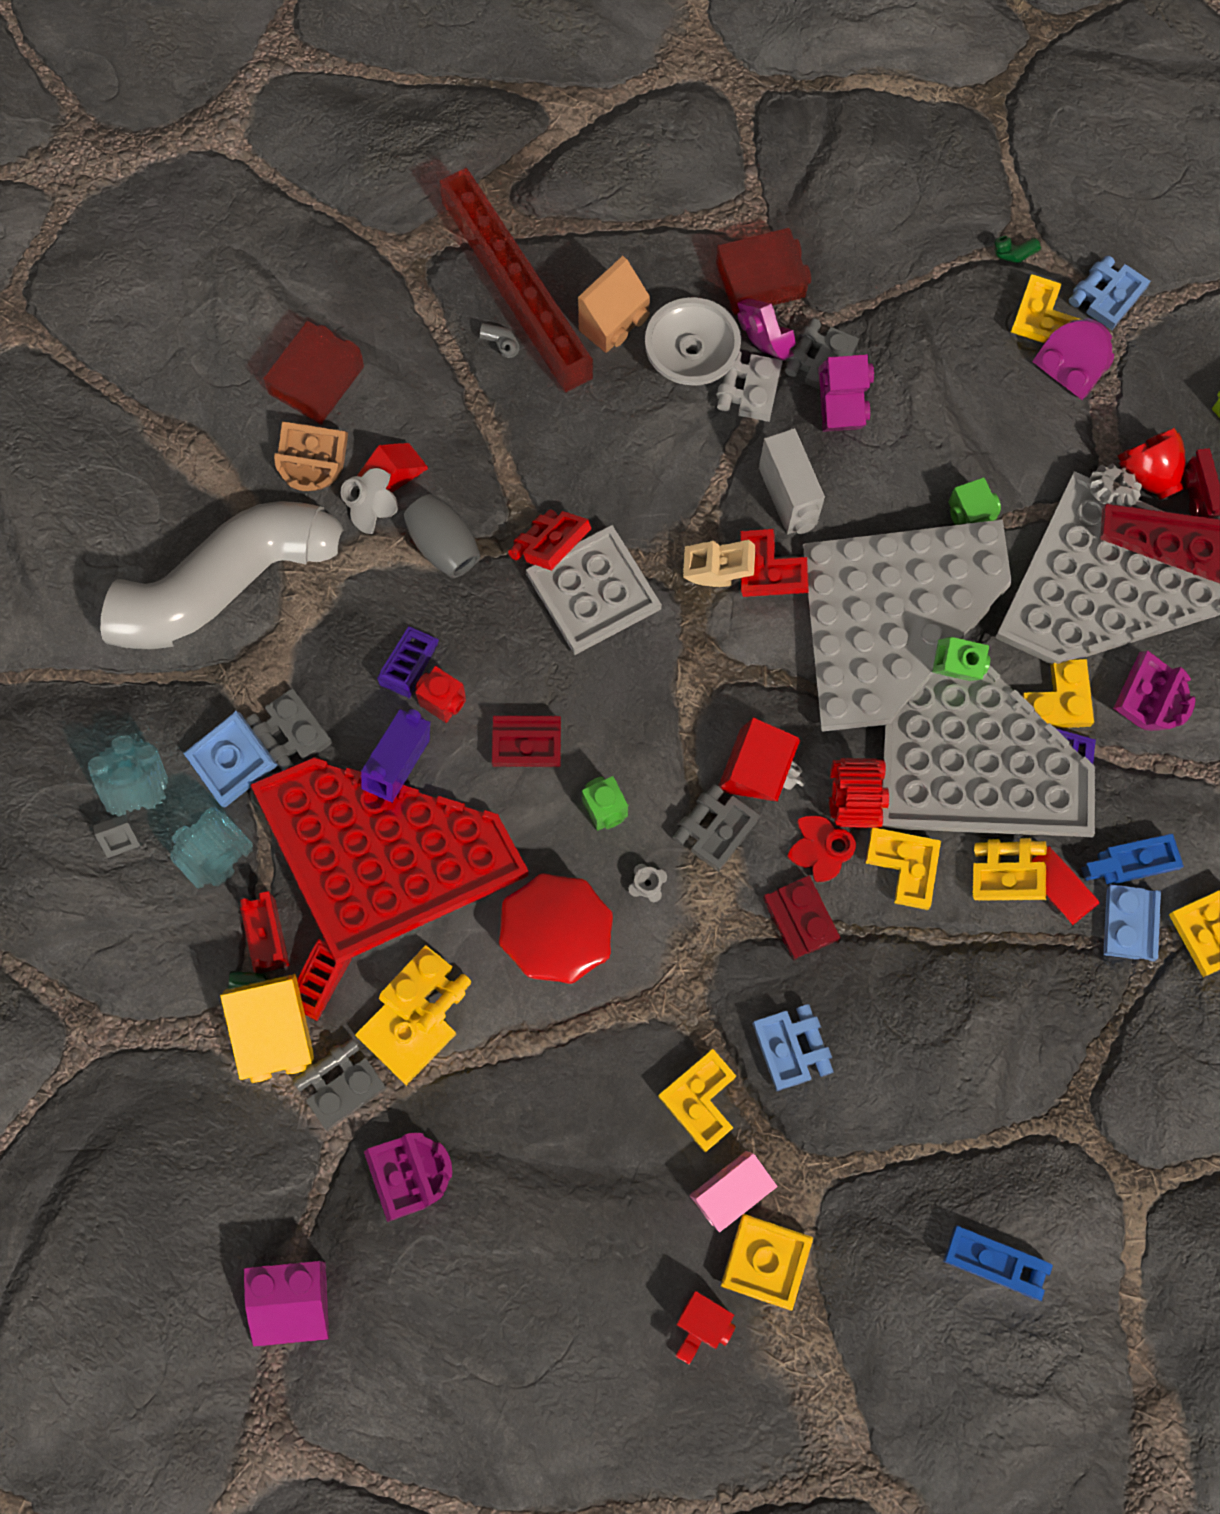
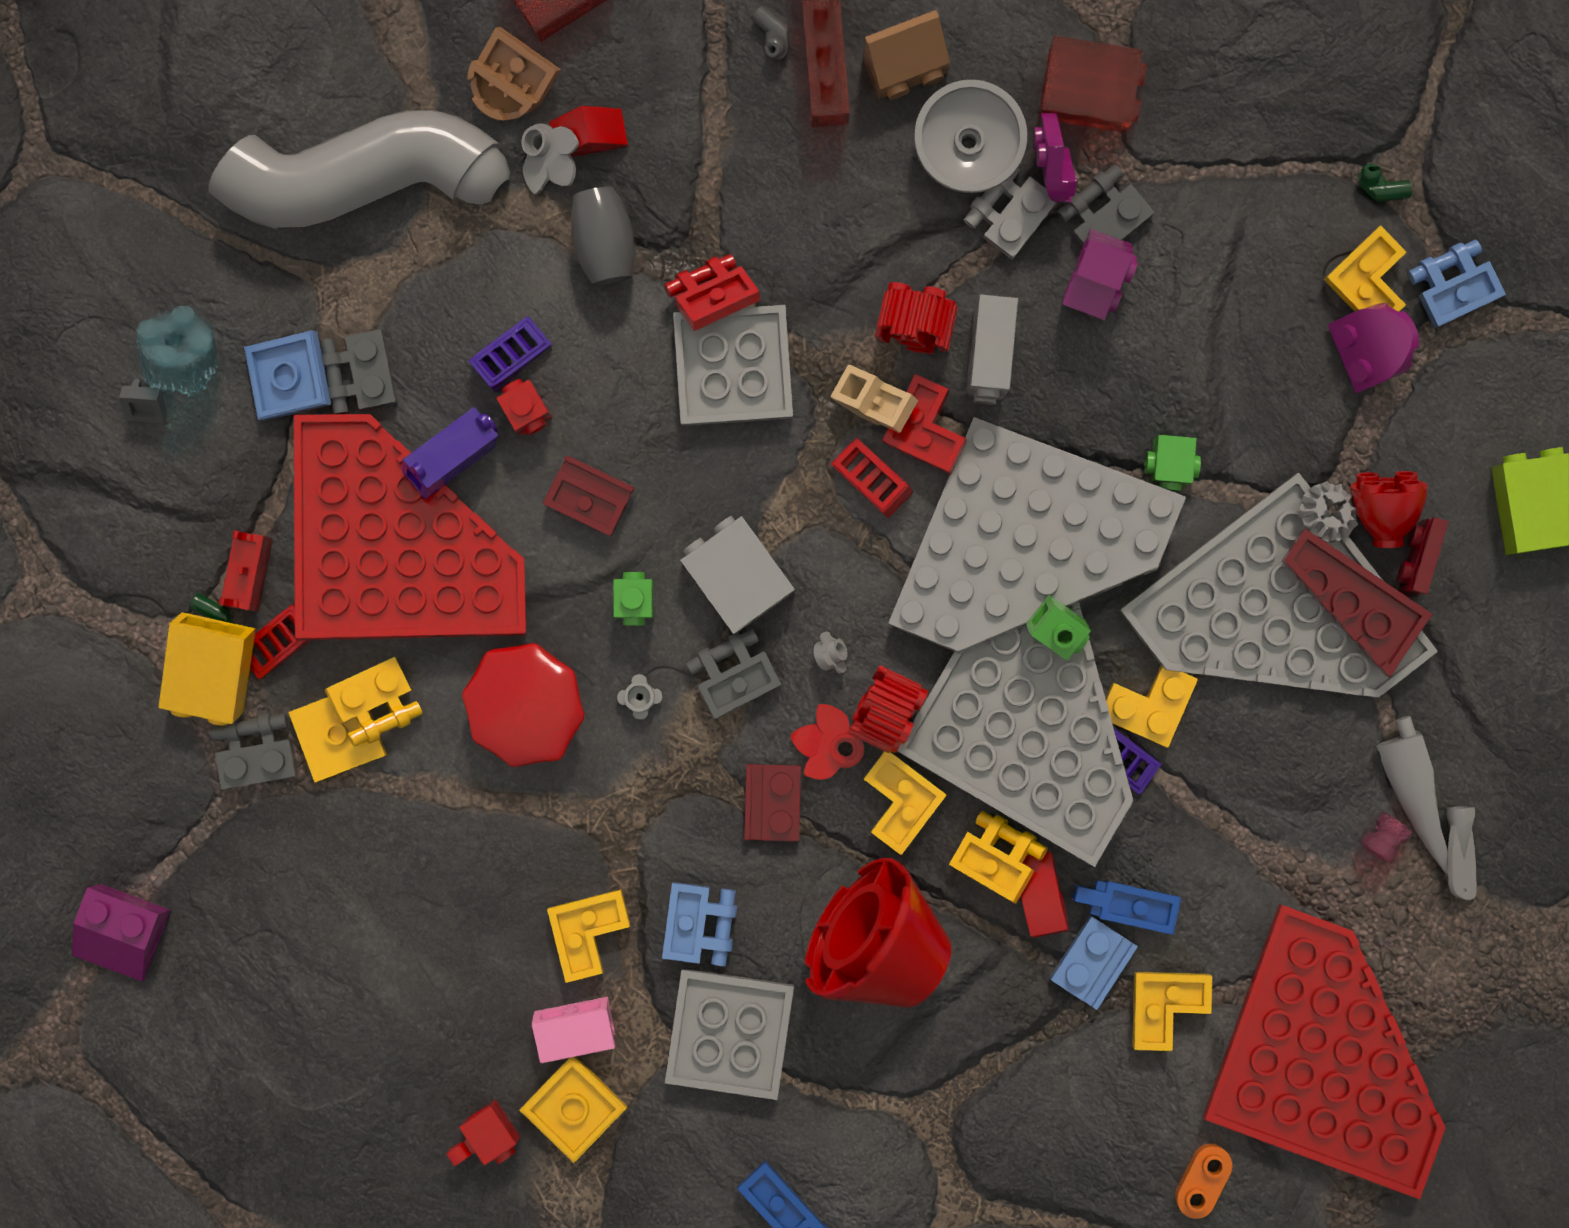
camera: 30 degrees right, 15 degrees up
(209, 848) = (224, 464): clear light blue brick -> none
(409, 1173) = (280, 869): magenta slope -> none
(678, 746) = (736, 573): none -> light grey brick
(721, 486) = (916, 318): none -> red brick
(756, 639) = (894, 500): none -> red slope
(759, 761) = (806, 632): red slope -> none
(867, 1129) = (729, 1034): none -> light grey plate
(953, 977) = (878, 941): none -> red cone
(1155, 695) = (1247, 749): magenta slope -> none

